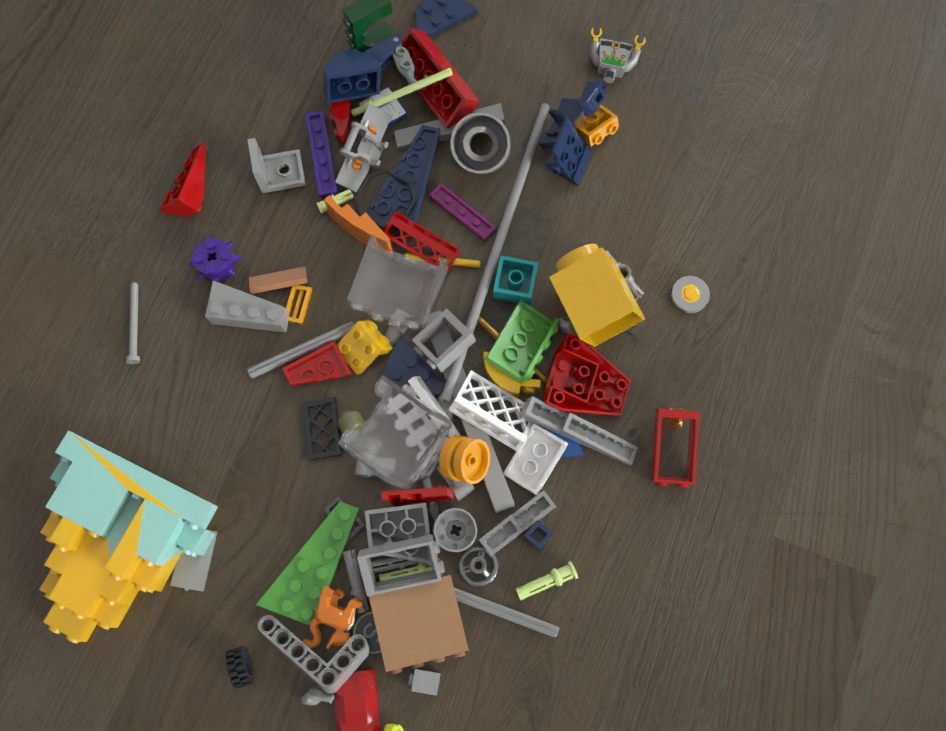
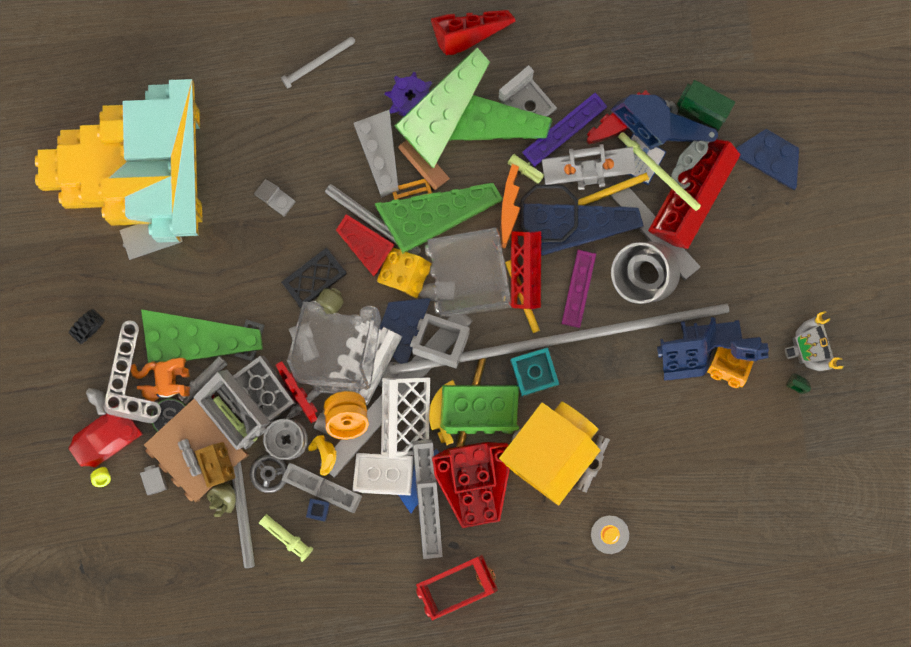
camera: 60 degrees right, 10 degrees up
(228, 425) = (274, 197): none -> light grey slope
(243, 244) = (437, 114): none -> wing
(270, 212) = (494, 120): none -> bright green wing
(325, 301) = (428, 215): none -> bright green wing
(395, 139) = (613, 189): none -> yellow piece
(423, 631) = (189, 457): none -> light grey axle
(443, 609) = (215, 464): none -> pearl gold bracket
(478, 622) = (221, 498): none -> olive piece
(488, 496) = (327, 452): none -> yellow helmet
(640, 81) = (799, 384): none -> dark green slope

